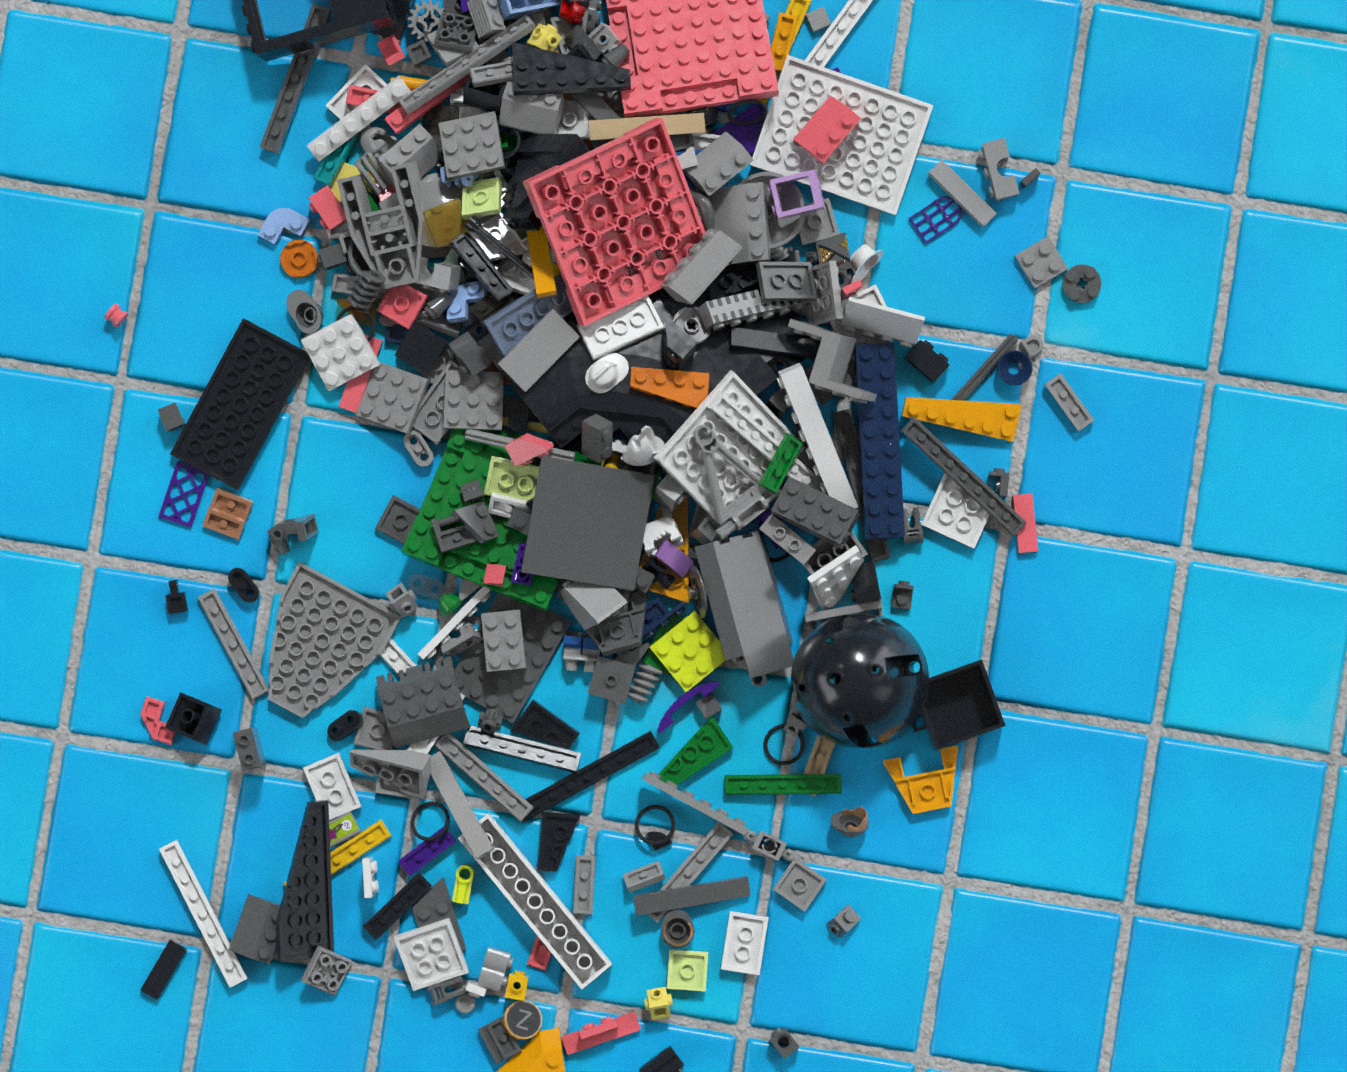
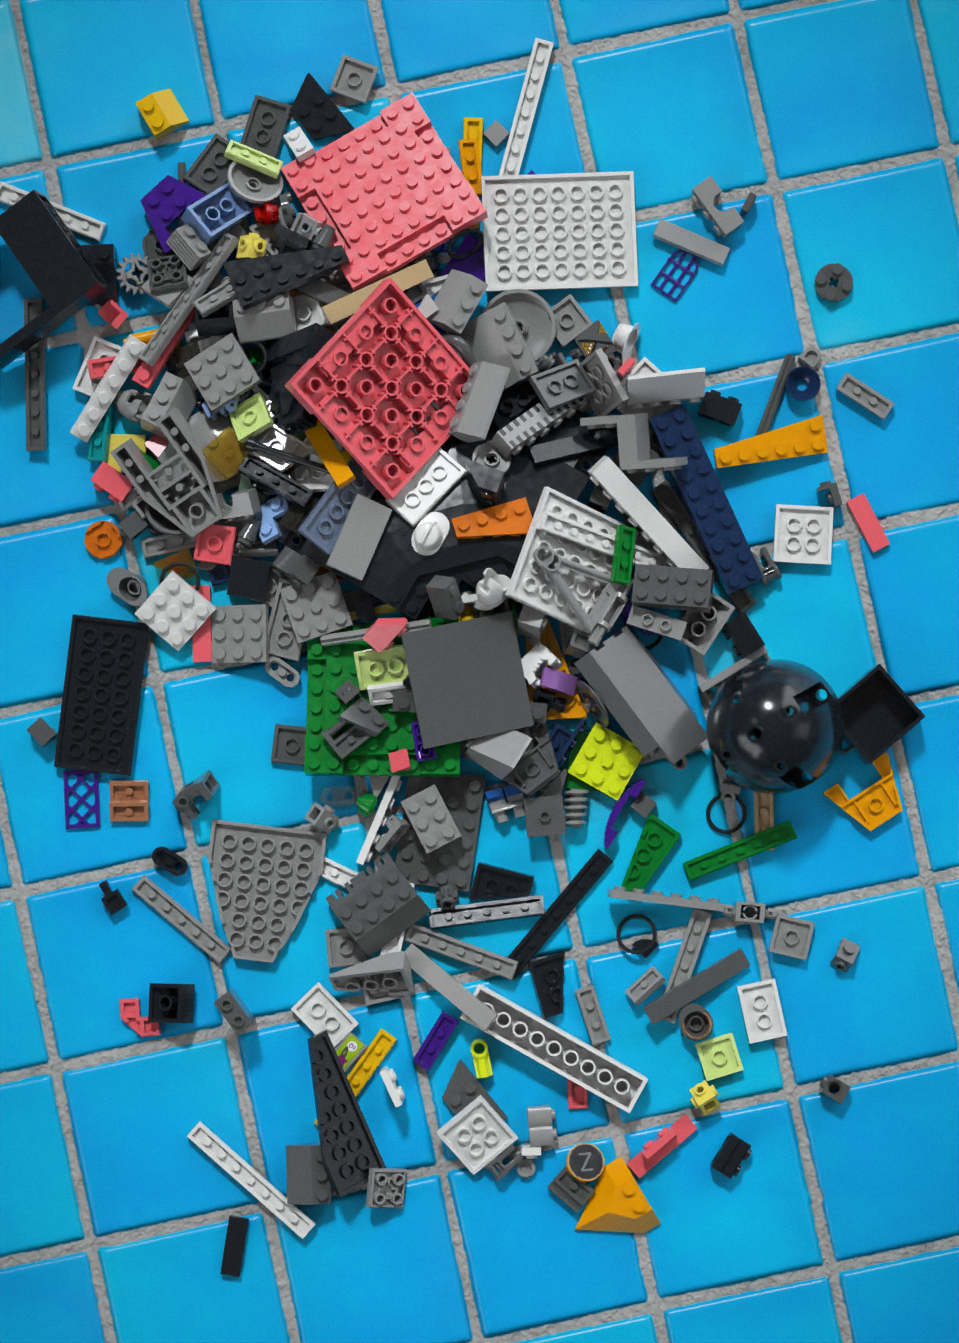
camera: 20 degrees left, 0 degrees up
(281, 219) = (75, 508): light blue plate -> none
(344, 725) = (314, 955): black plate -> none
(367, 290) = (178, 544): dark grey piece -> none
(382, 185) = (154, 441): light grey tile -> none
(397, 906) = (428, 1102): black plate -> none
(418, 53) = (139, 306): dark grey panel -> none
(441, 833) = (443, 1017): black tyre -> none
(511, 992) = (567, 1141): yellow brick -> none
(816, 192) = (527, 321): lavender window -> none
(826, 129) = (544, 230): coral slope -> none
(834, 578) = (713, 642): white plate -> none
(851, 822) = (816, 861): dark grey piece -> none
(902, 595) = (781, 633): dark grey bracket -> none
(963, 476) = (795, 502): dark grey tile -> none
(1041, 262) = (788, 277): light grey plate -> none

